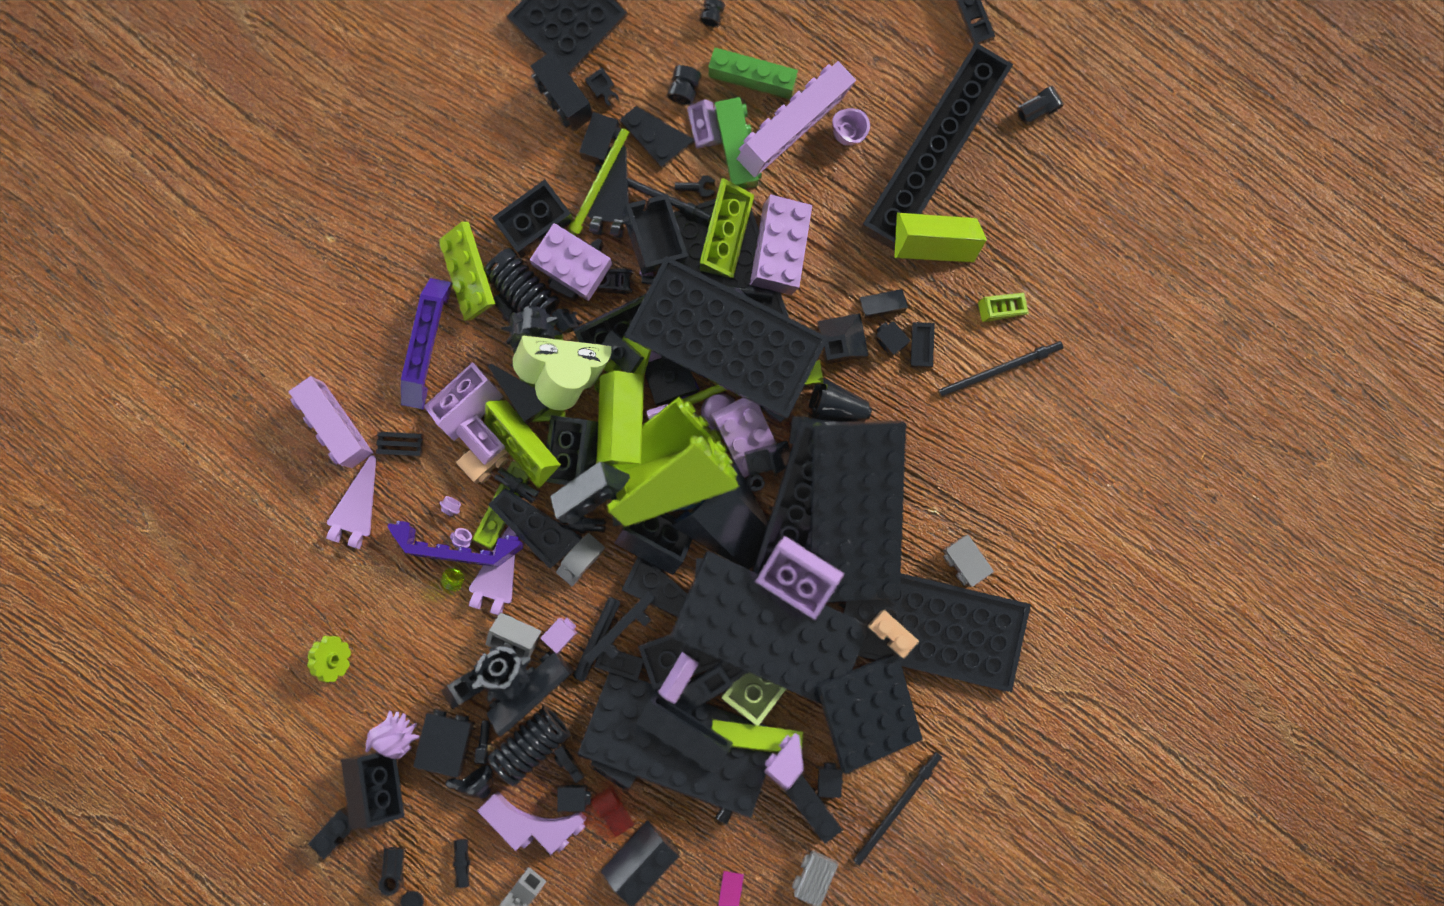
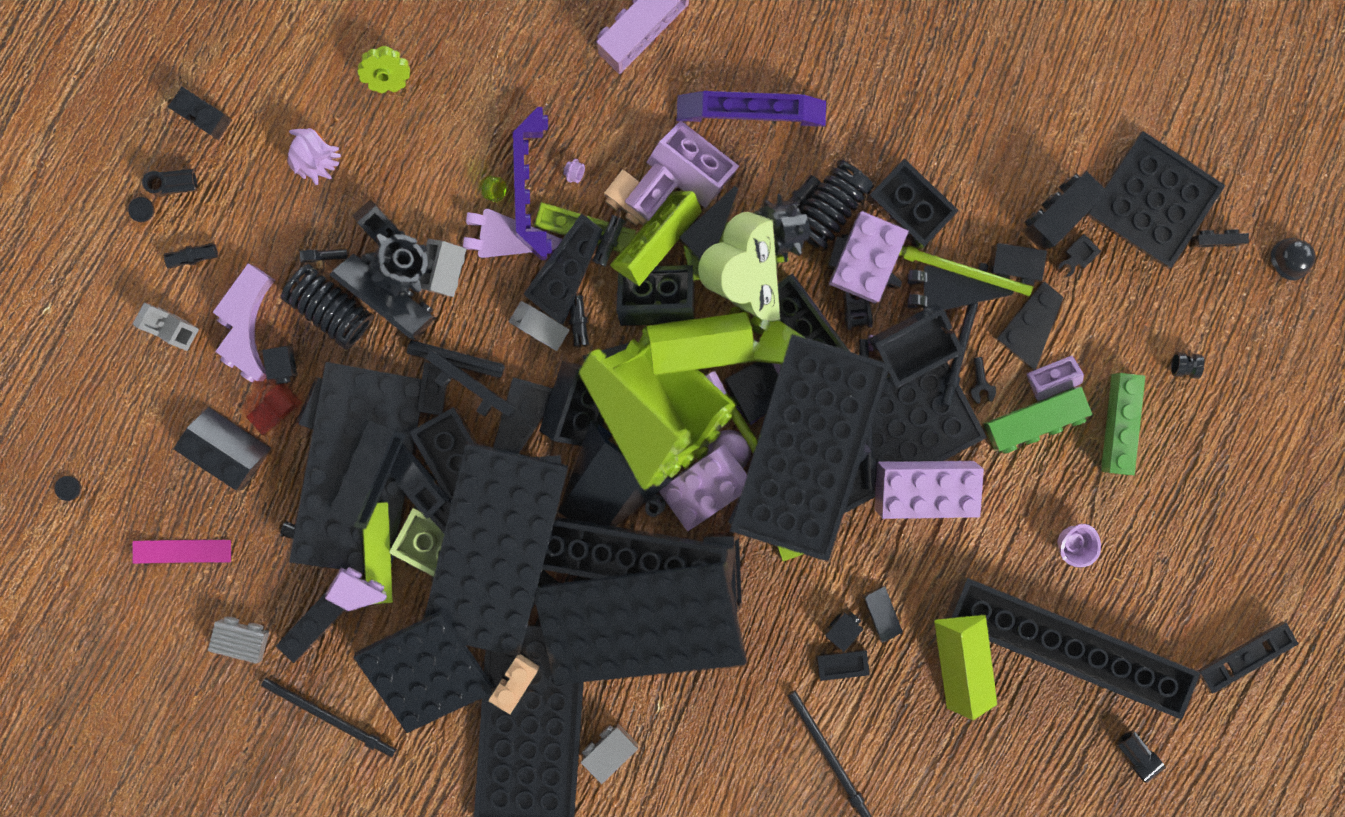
camera: 80 degrees right, 5 degrees up
(355, 508) = (554, 66): lavender flag -> none
(372, 790) = (250, 144): black brick -> none
(380, 442) = (631, 80): black tile -> none
(444, 743) = (314, 213): black brick -> none
(461, 538) = (540, 190): lavender plate -> none
(466, 271) = (839, 140): lime plate -> none
(476, 784) = (277, 256): black hat -> none
(560, 634) = (453, 318): lavender brick -> none
(566, 760) = (319, 349): black plate -> none
(567, 320) = (802, 264): black plate -> none
(588, 492) = (611, 323): slope -> none
(622, 352) = (775, 333): black plate -> none
(678, 678) = (425, 457): lavender slope -> none
(684, 82) = (1093, 347): black wheel -> none
(726, 230) = (935, 425): lime slope -> none
(768, 458) = (683, 515): black slope -> none
(795, 118) = (1077, 481): lavender brick -> none
(799, 577) = (554, 574): lavender brick -> none
(829, 780) = (345, 639): black brick -> none
(837, 404) = (758, 580): black cone -> none
(845, 338) = (835, 578): black slope -> none
(989, 310) = (896, 733): lime slope -> none

